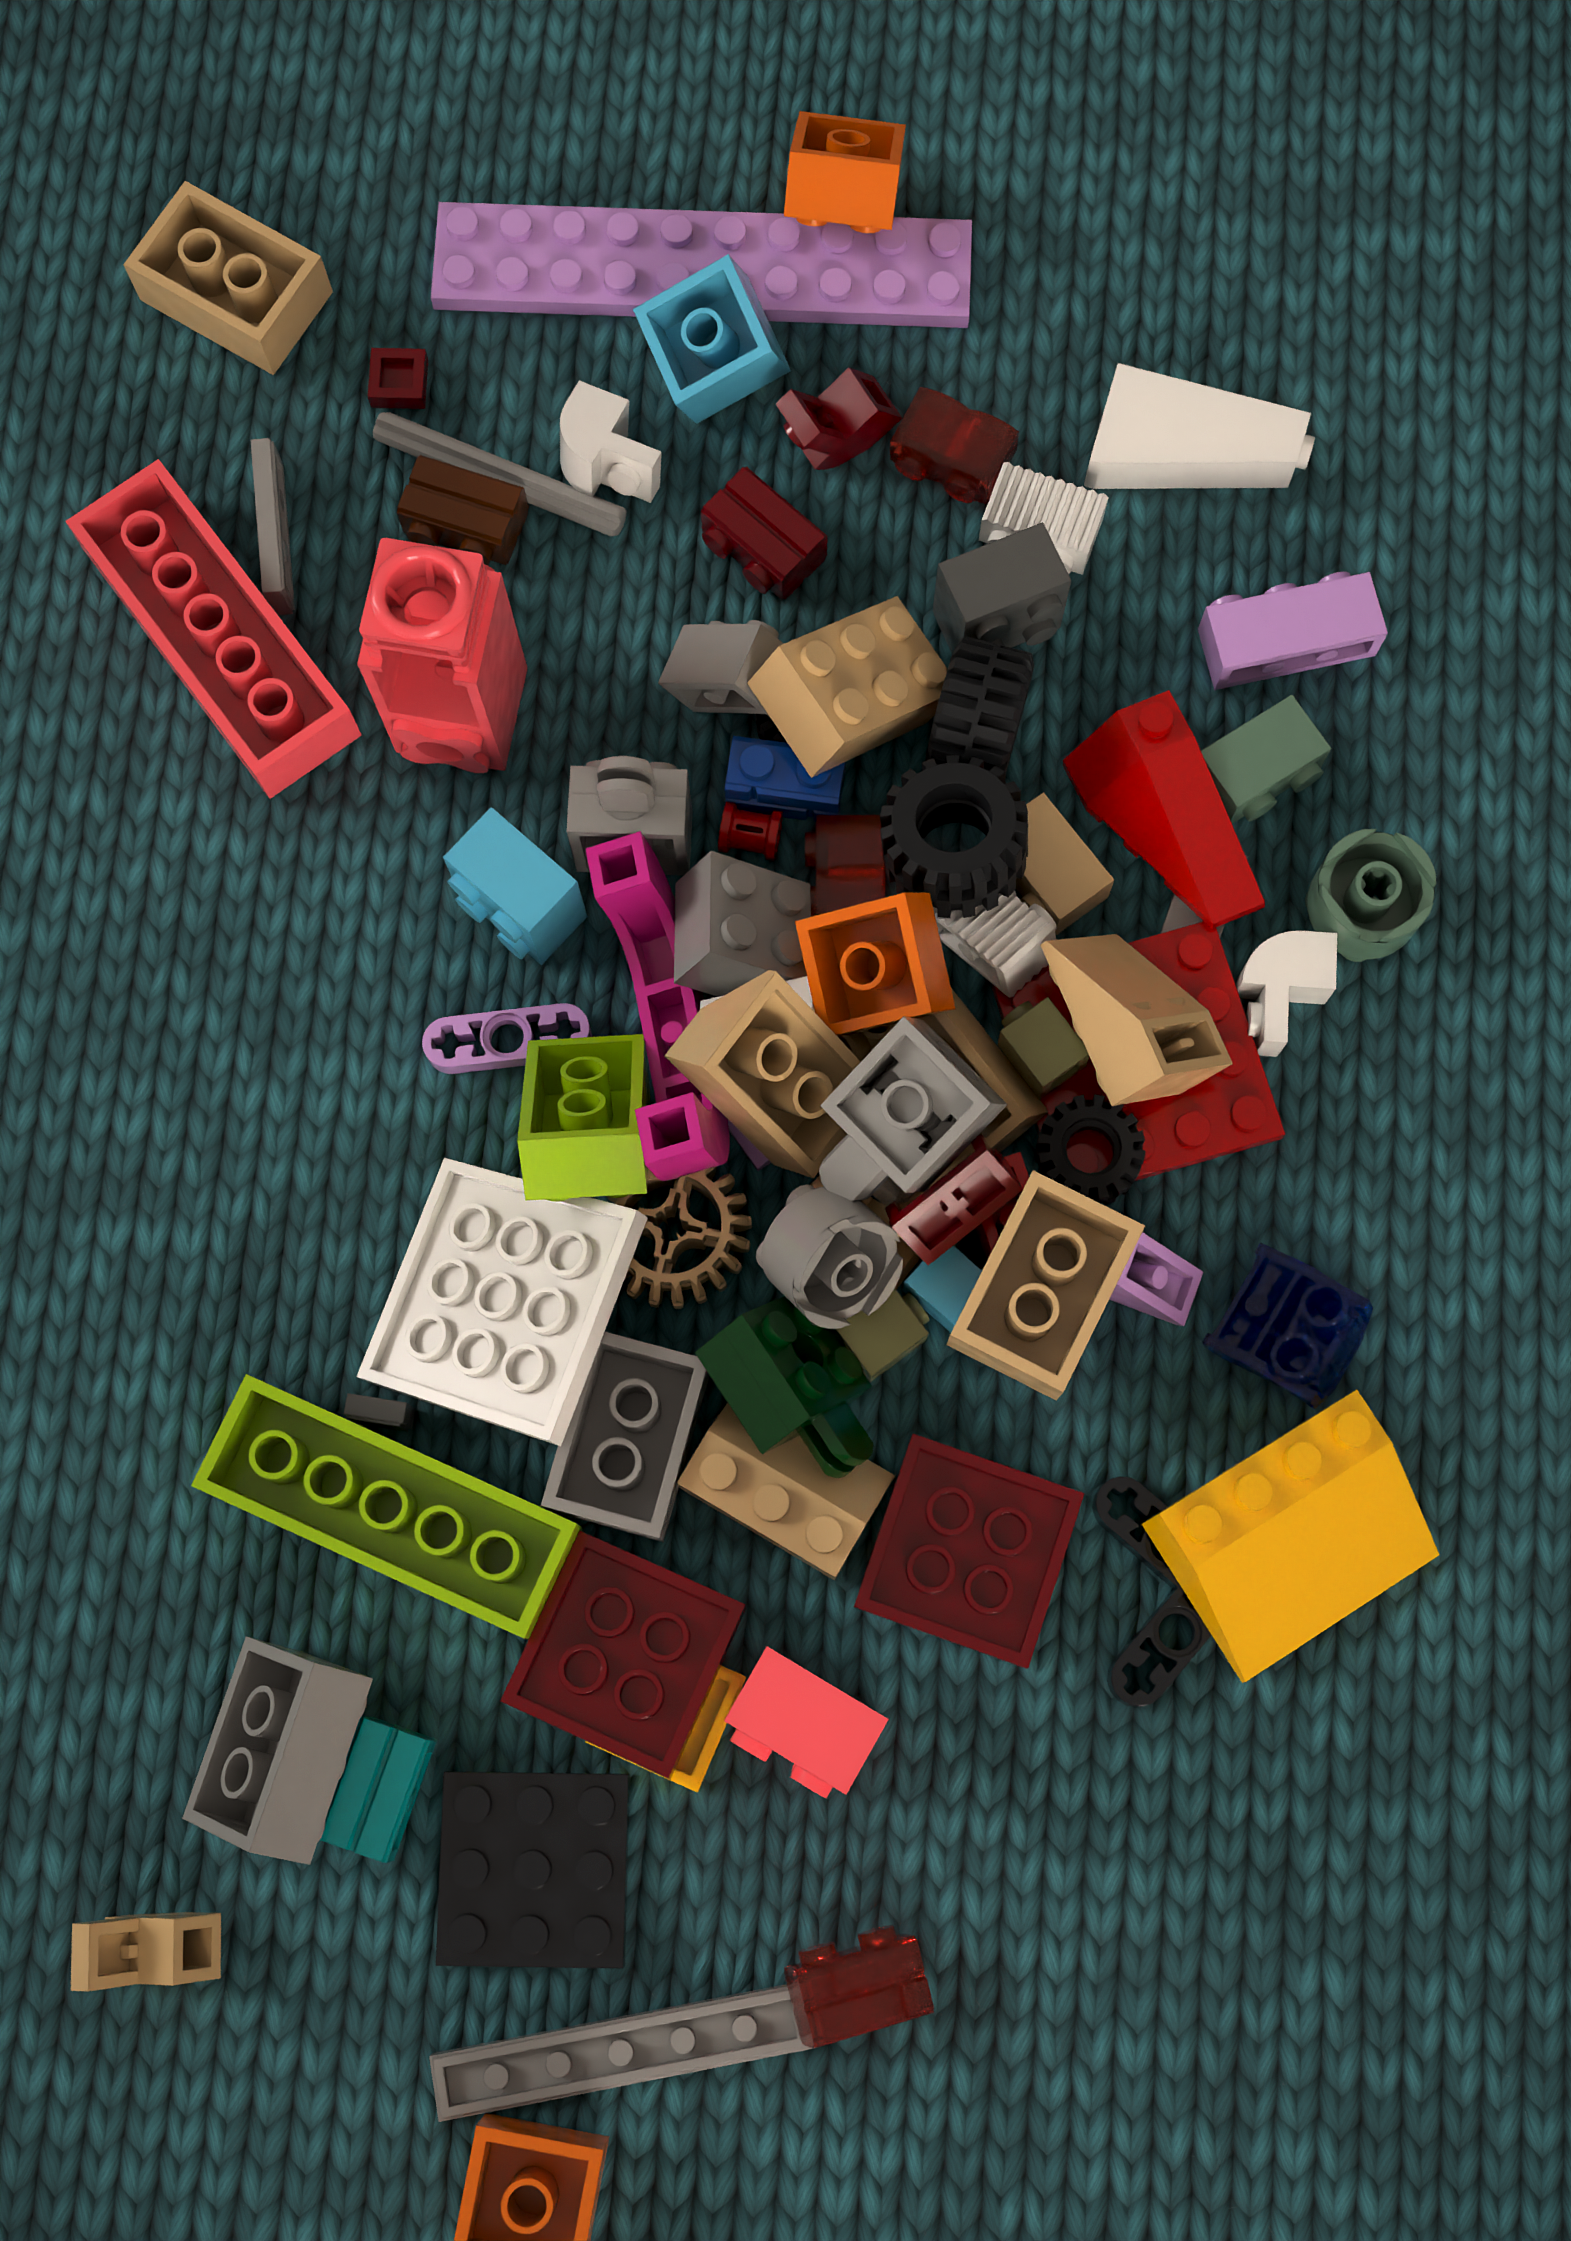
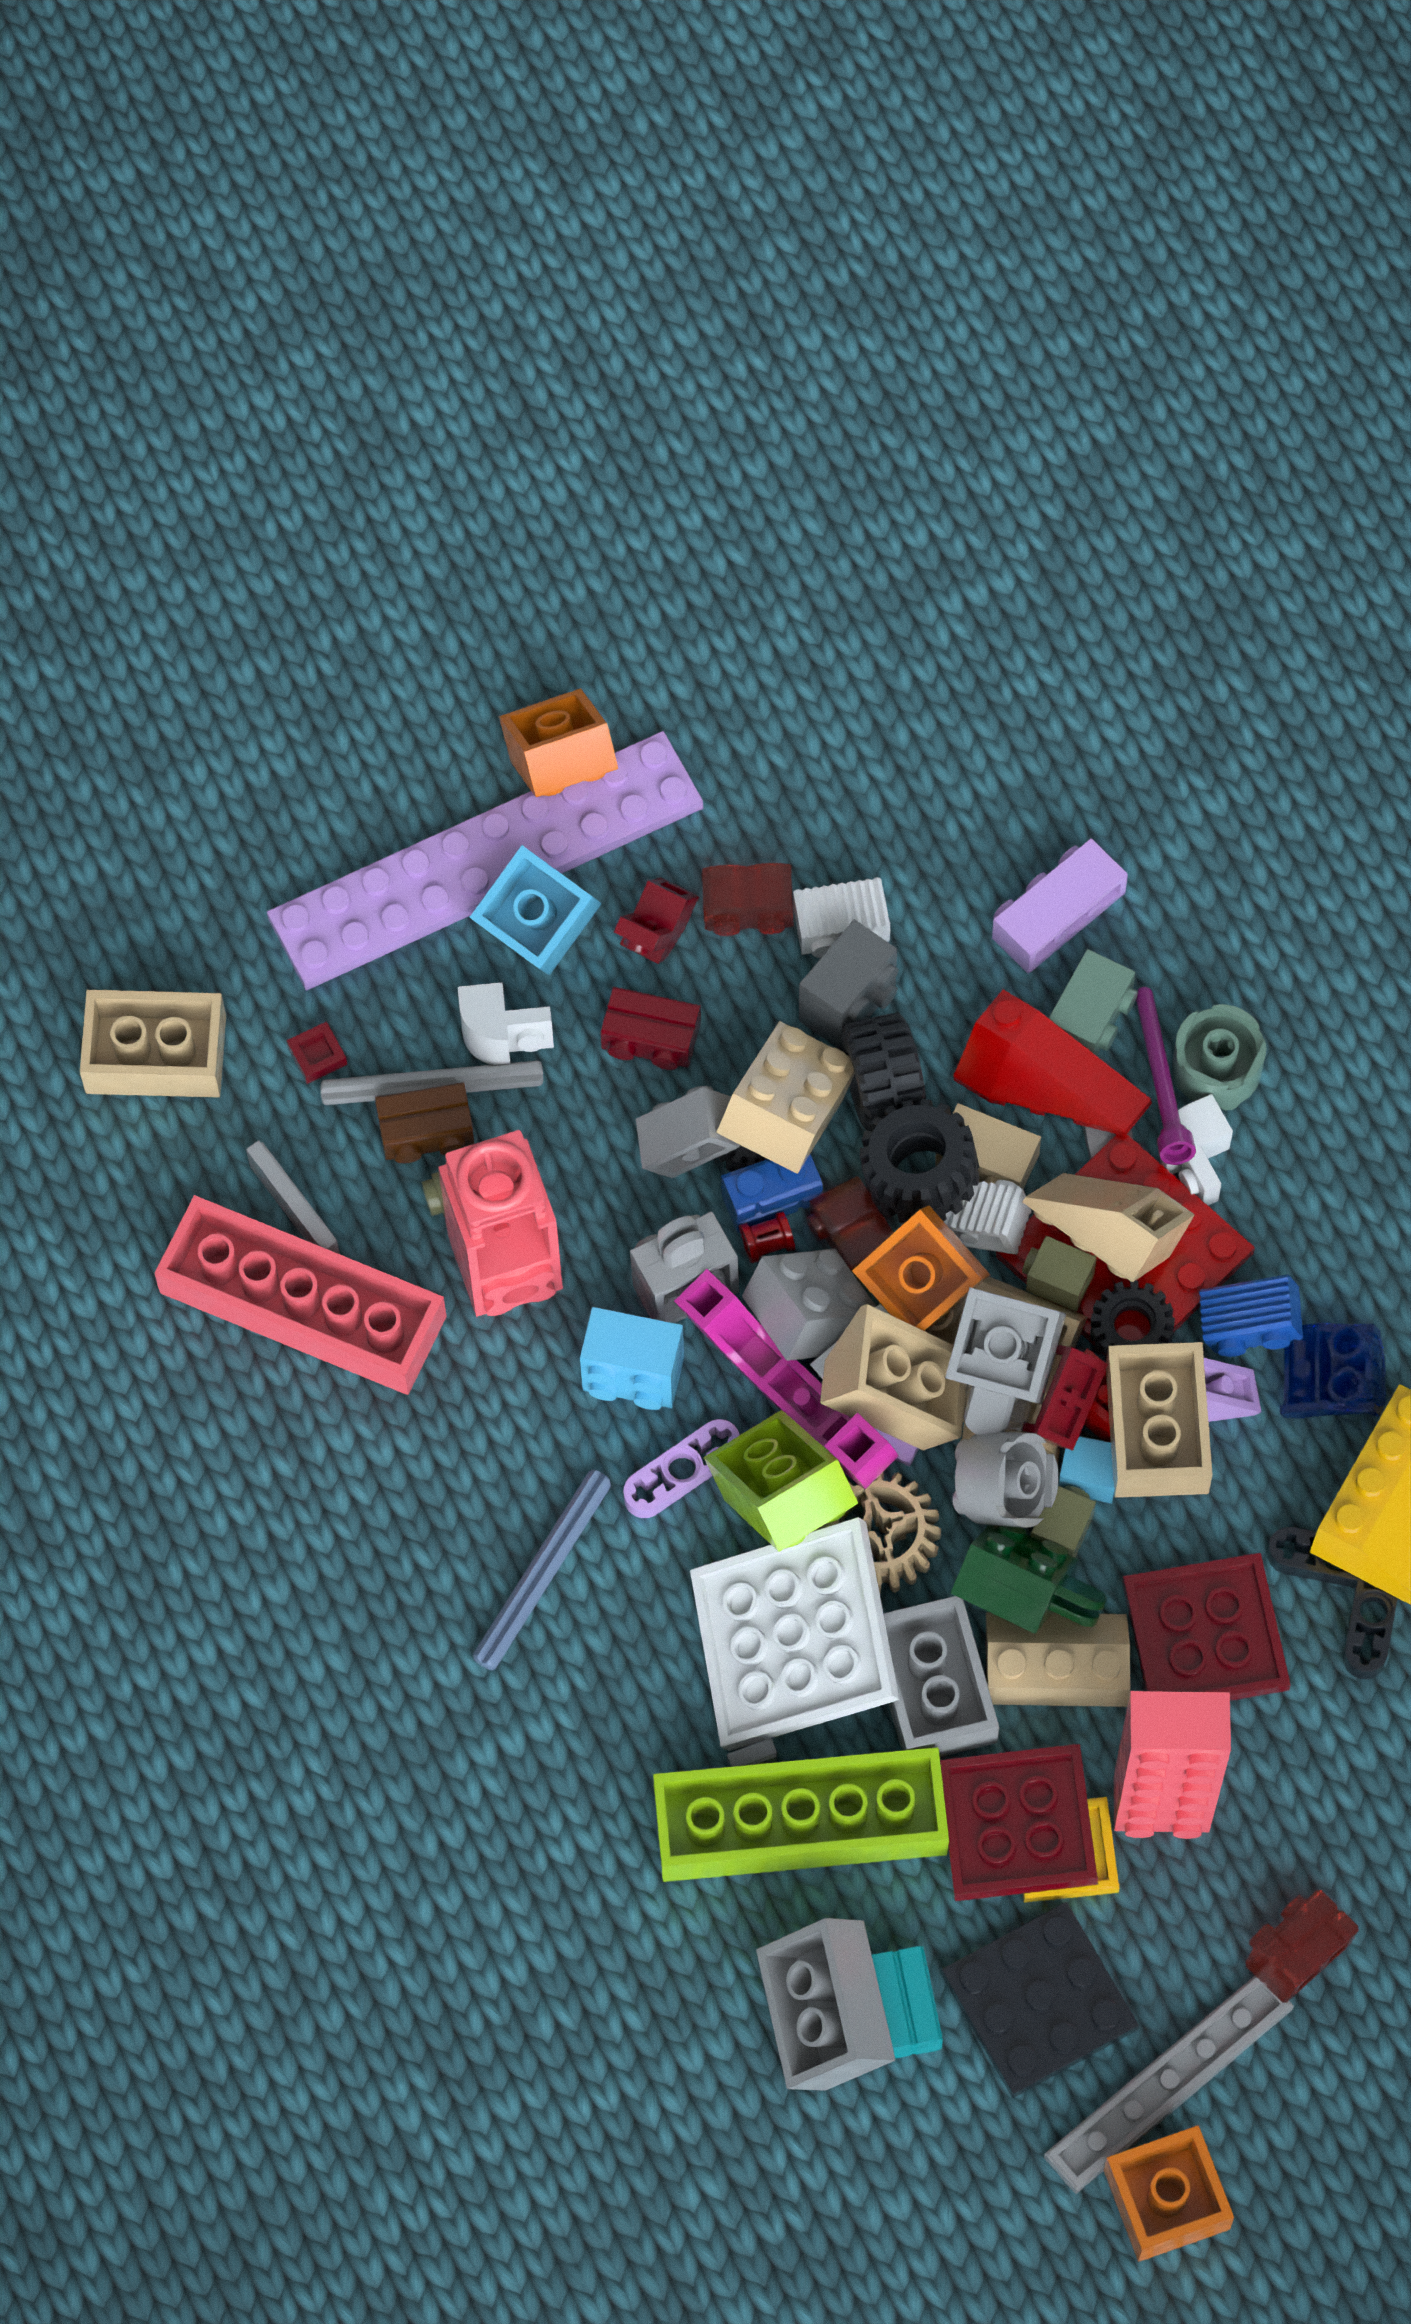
camera: 30 degrees left, 10 degrees down
(146, 1950) = (817, 2186): tan brick -> none
(290, 1068) = (541, 1570): none -> sand blue axle
(1193, 436) = (911, 805): white slope -> none
(1234, 1212) = (1251, 1315): none -> blue brick
(1262, 965) = (1175, 1140): none -> magenta piece

